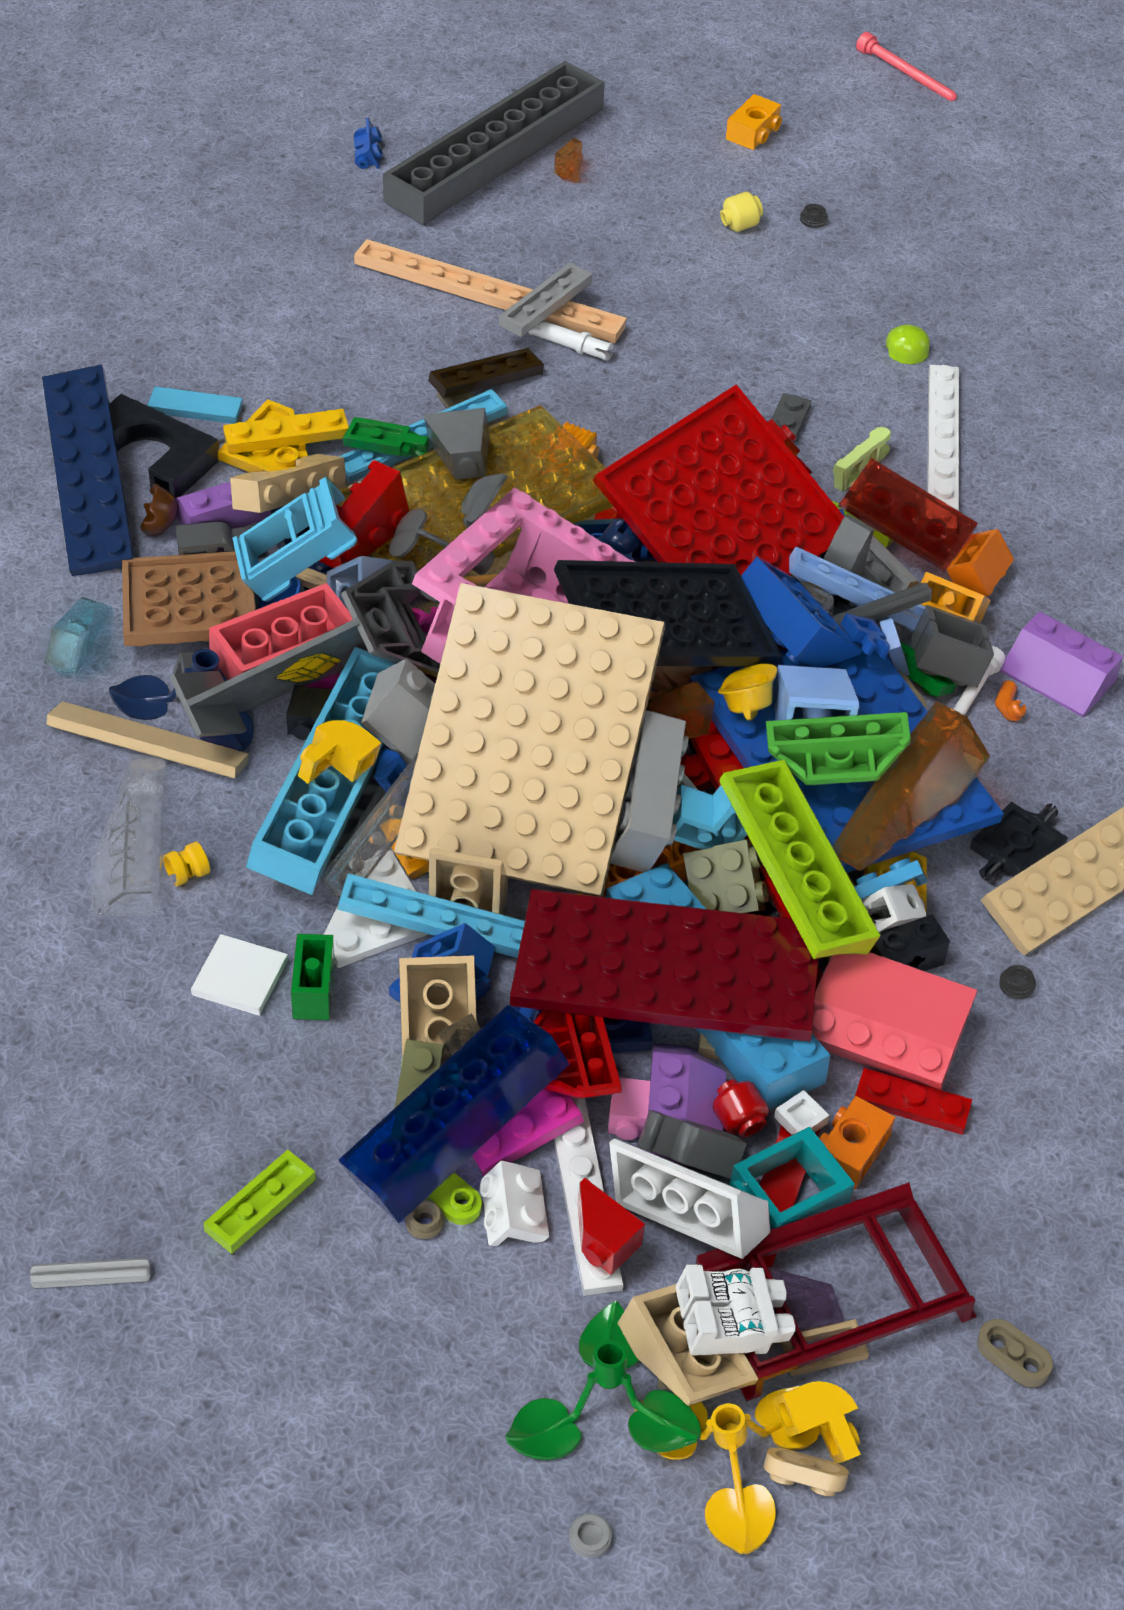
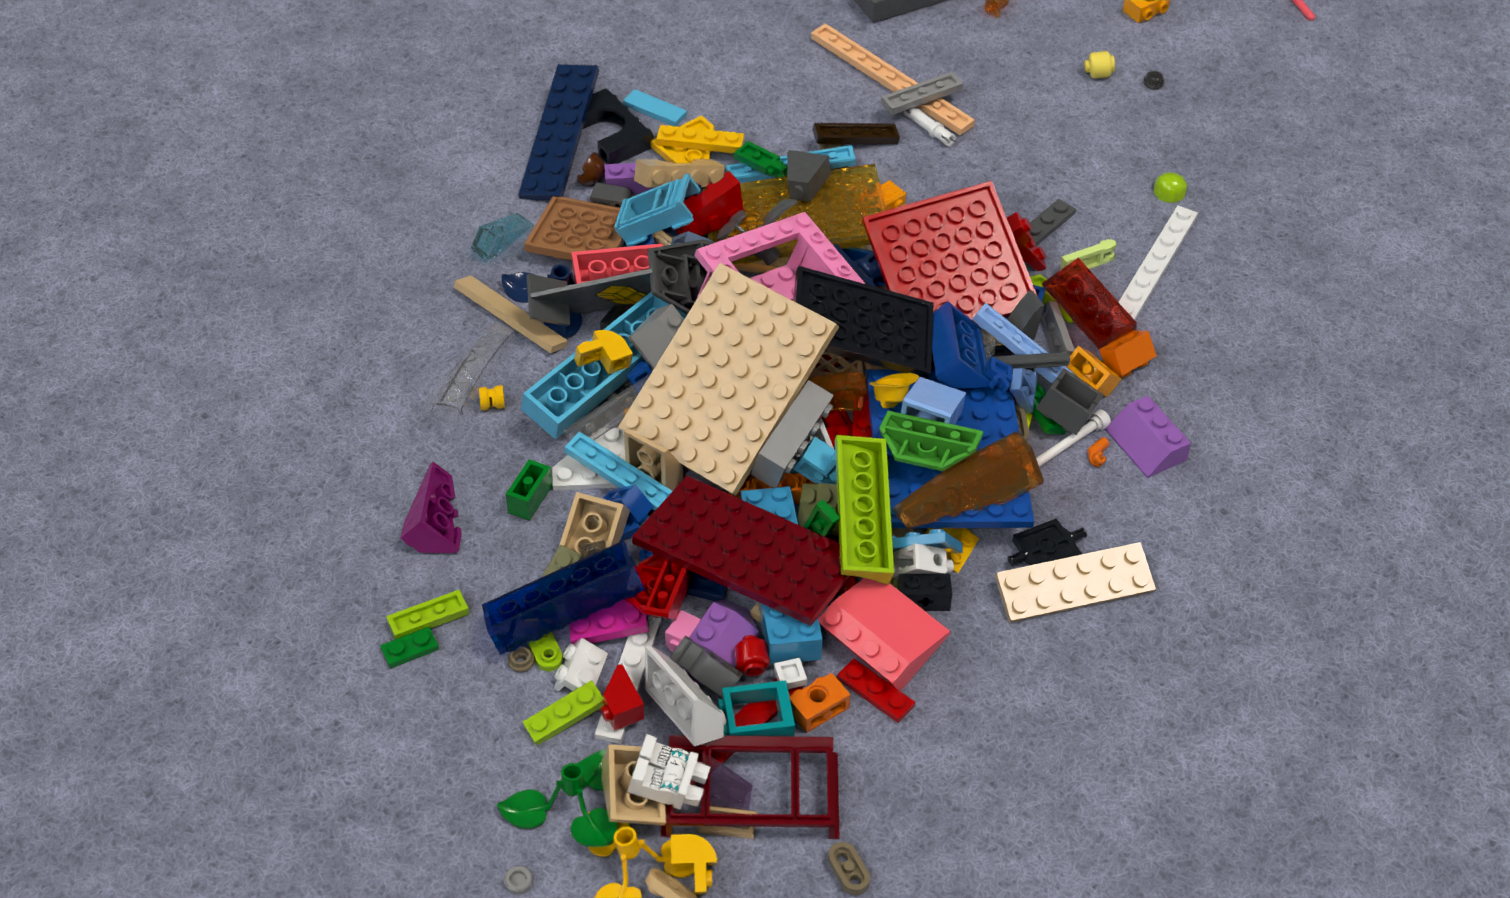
camera: 25 degrees right, 0 degrees up
(90, 1272) = (308, 624): light grey axle -> none
(188, 1059) = (430, 518): none -> magenta wedge
(239, 974) = (488, 475): white tile -> none
(256, 1256) = (409, 647): none -> green plate
(528, 1274) = (564, 713): none -> lime plate
(751, 892) = (822, 519): none -> green plate
(1017, 982) = (992, 637): clear smoke plate -> none

